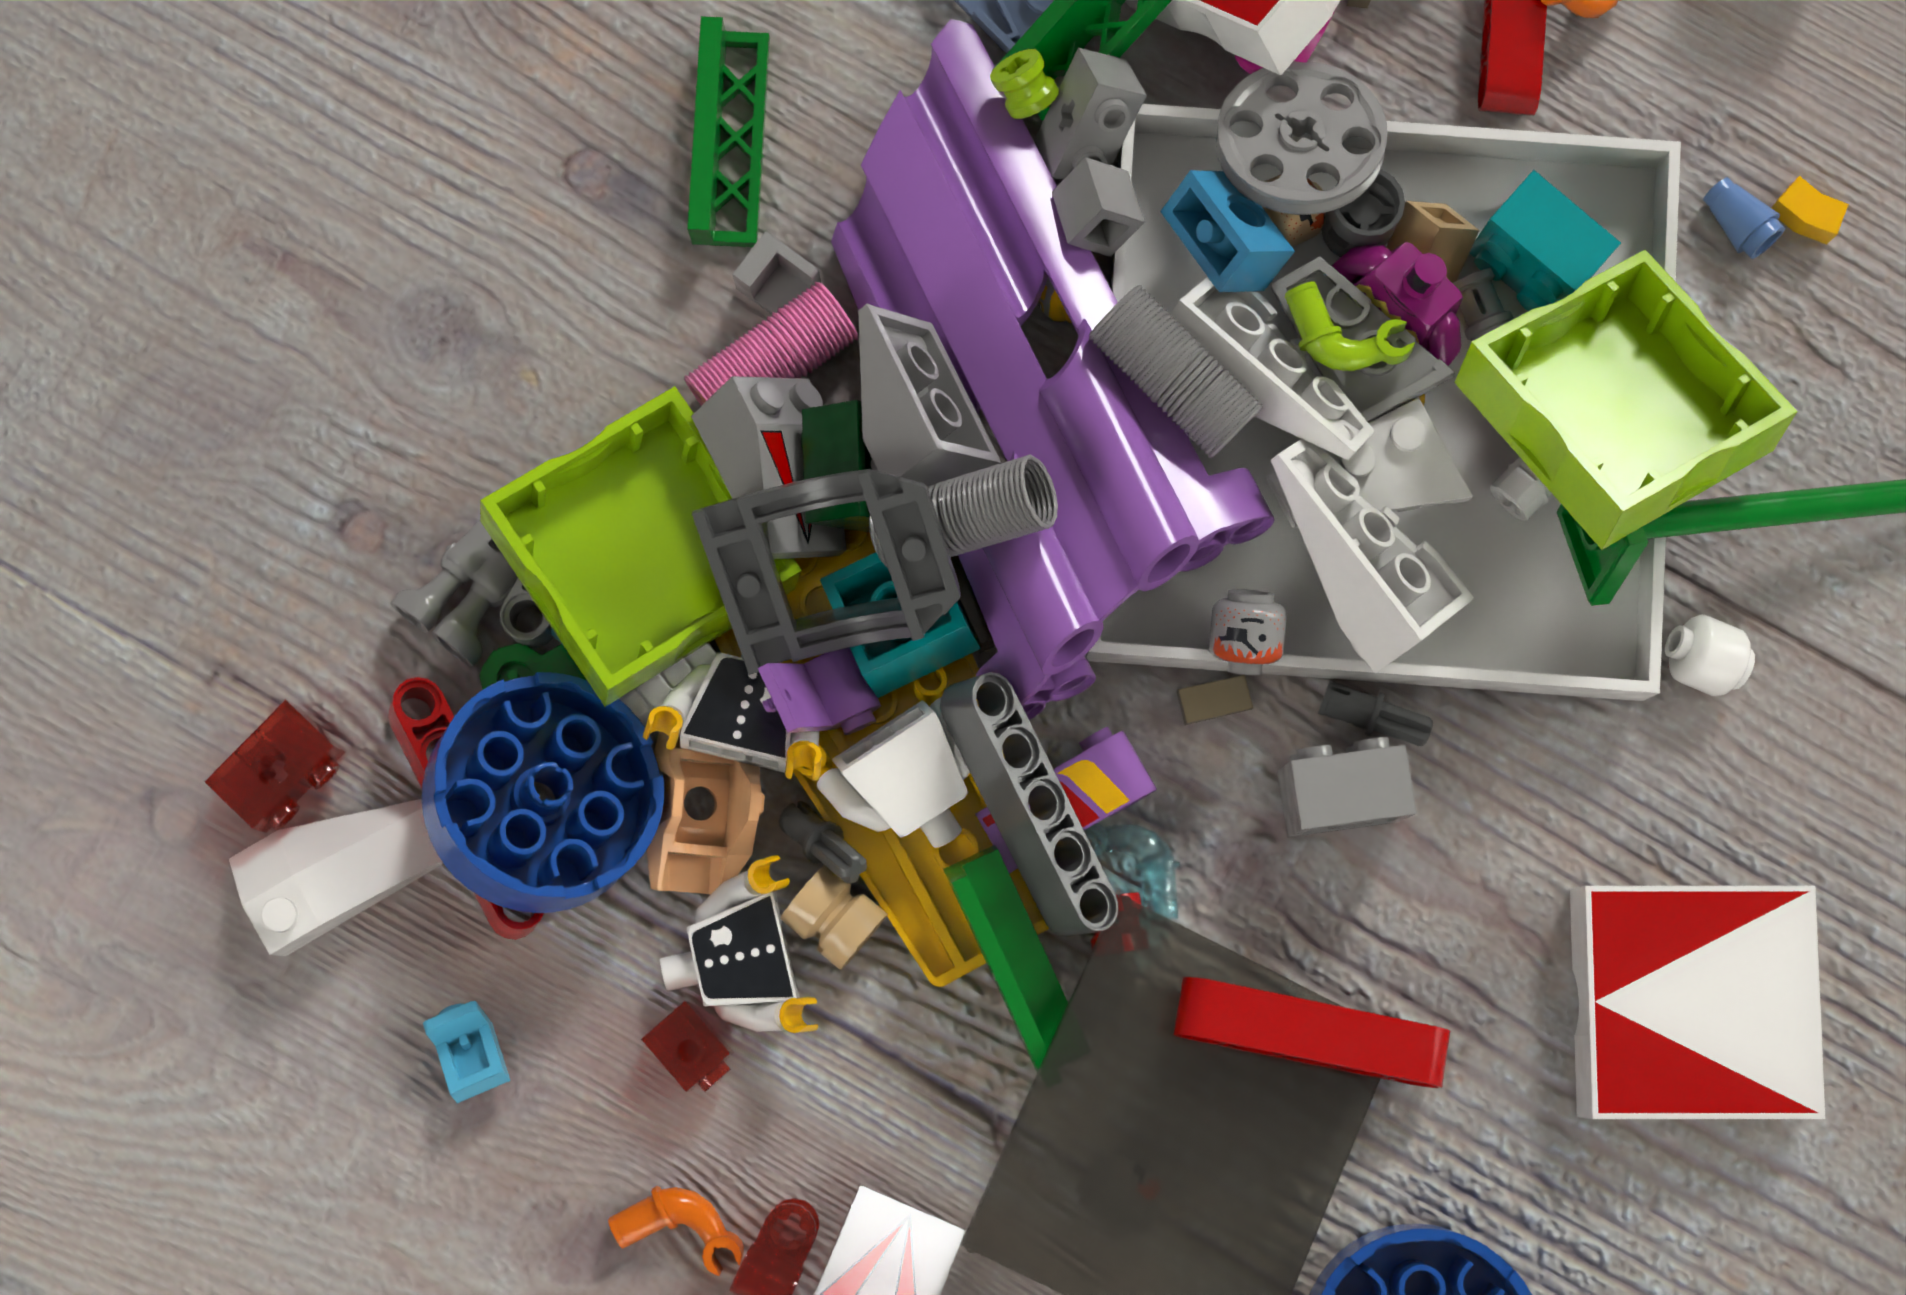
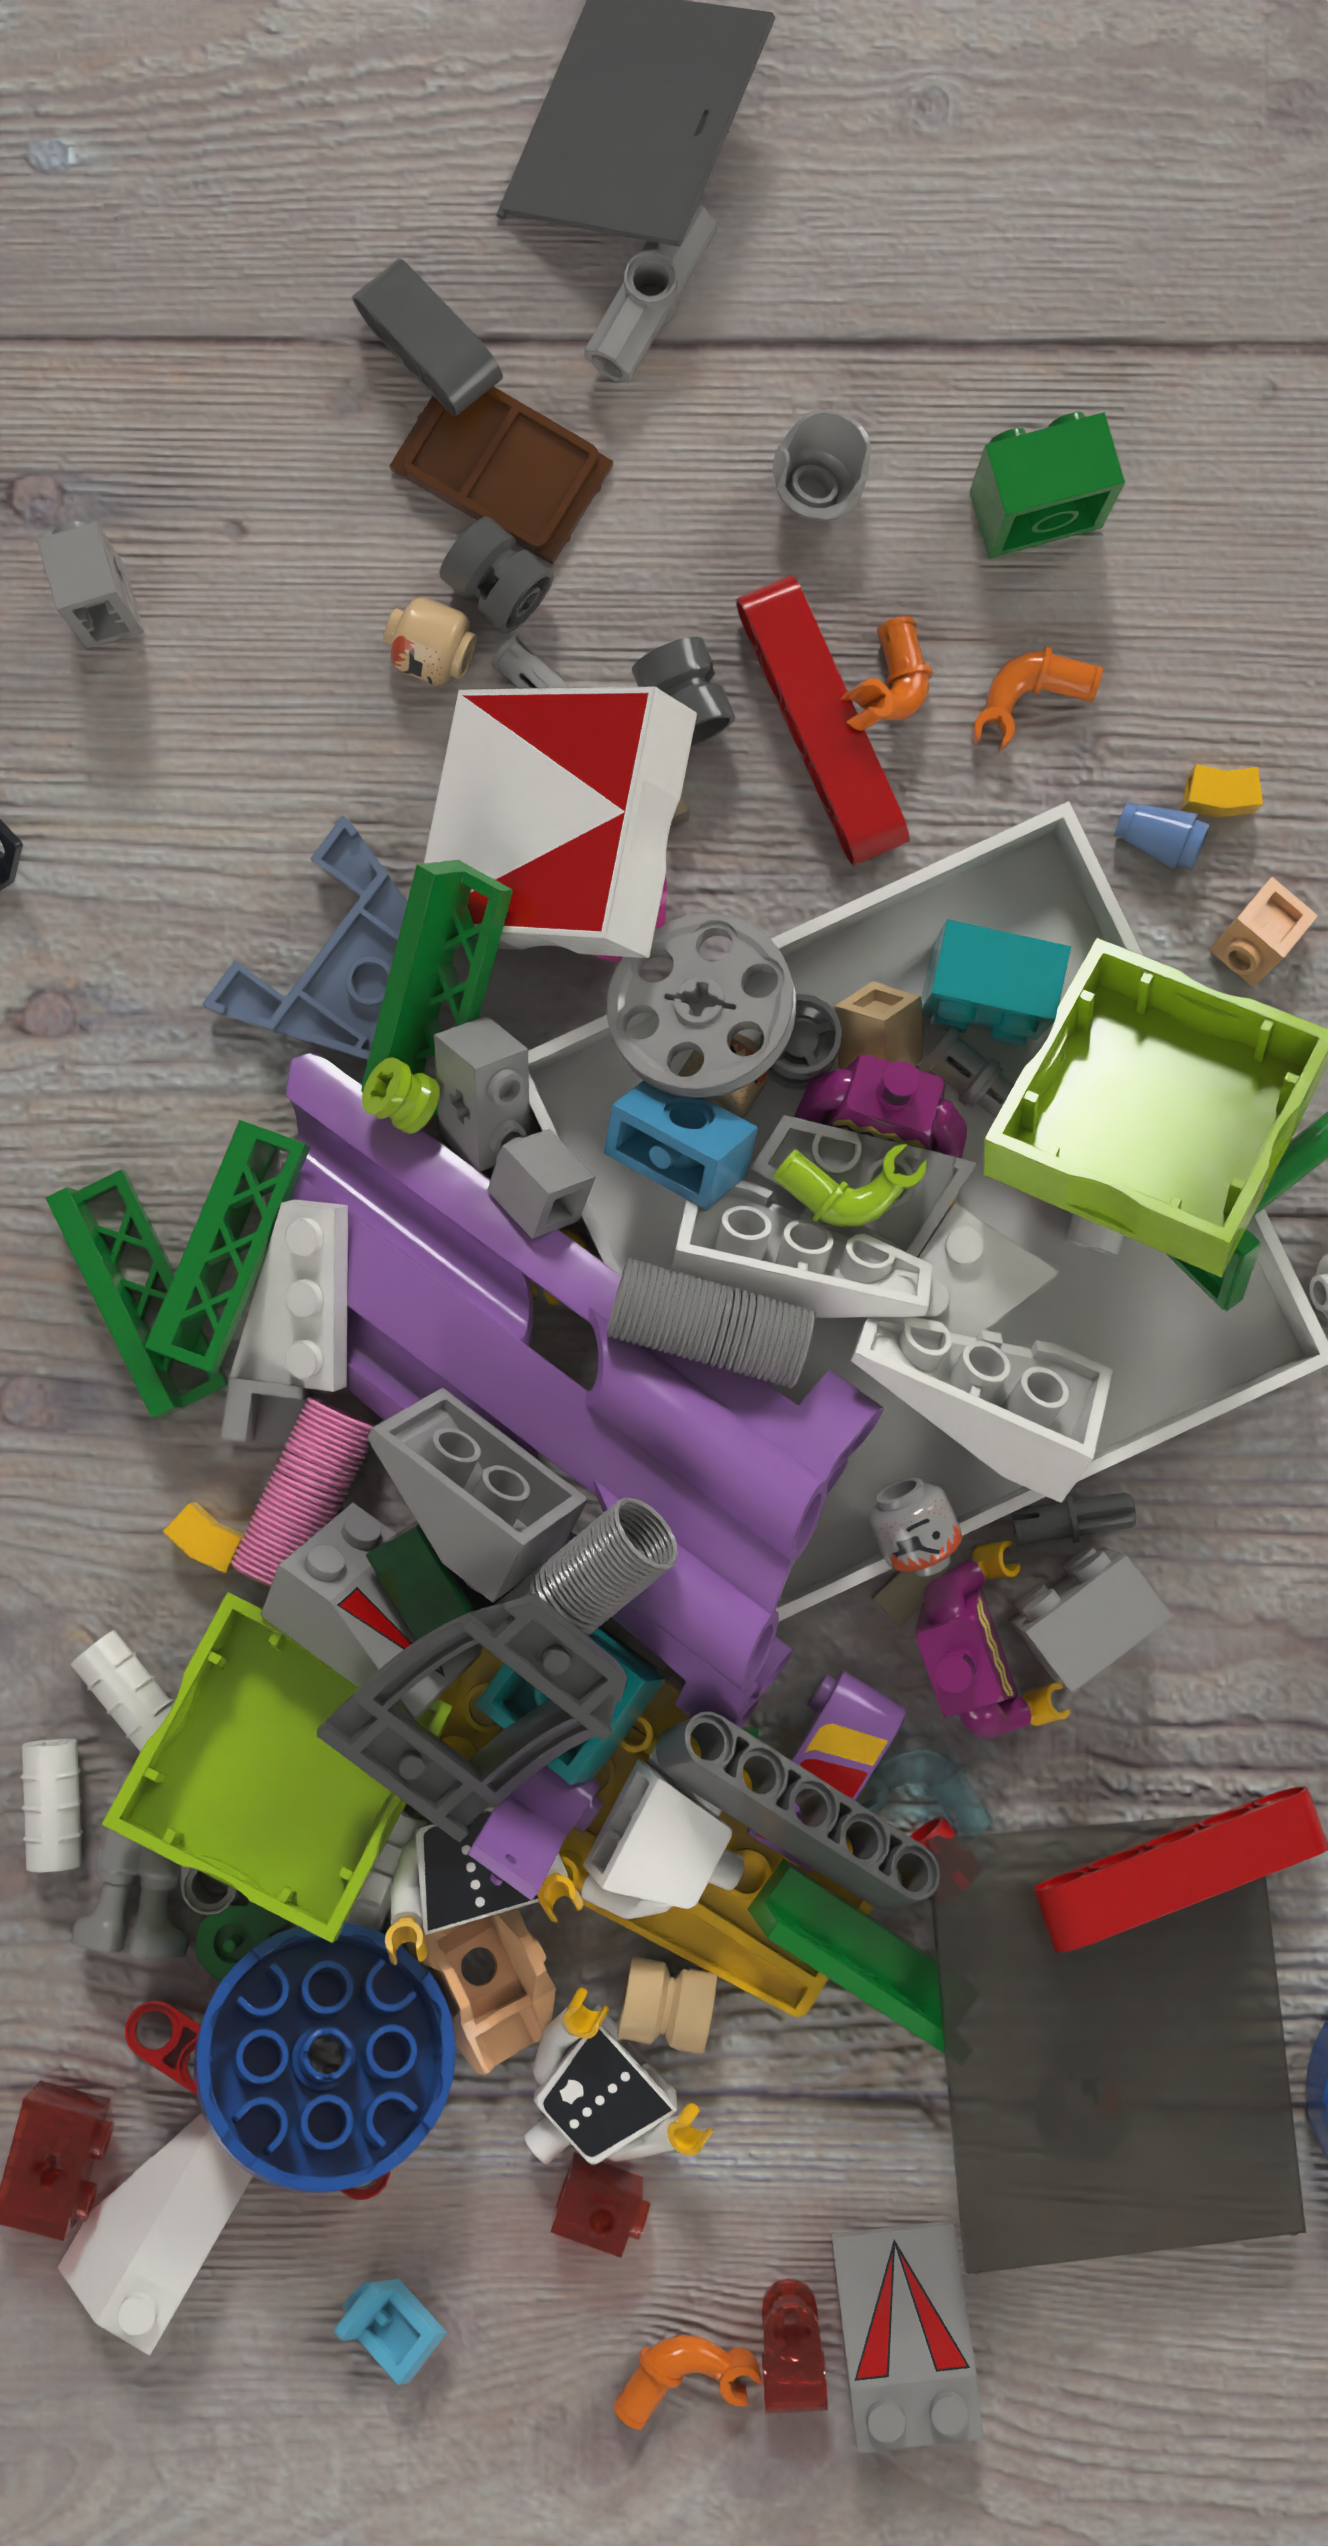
camera: 25 degrees left, 5 degrees up
(435, 490) = (51, 1805): none -> white axle
(541, 421) = (123, 1687): none -> white axle
(672, 350) = (204, 1537): none -> yellow piece
(815, 123) = (217, 1240): none -> green fence
(822, 841) = (618, 1943): dark grey axle -> none
(855, 202) = (300, 1302): none -> white wing
(1230, 773) = (967, 1655): none -> magenta torso
(1706, 38) = (1032, 673): none -> orange piece
(1783, 335) = (1263, 932): none -> light nougat bracket

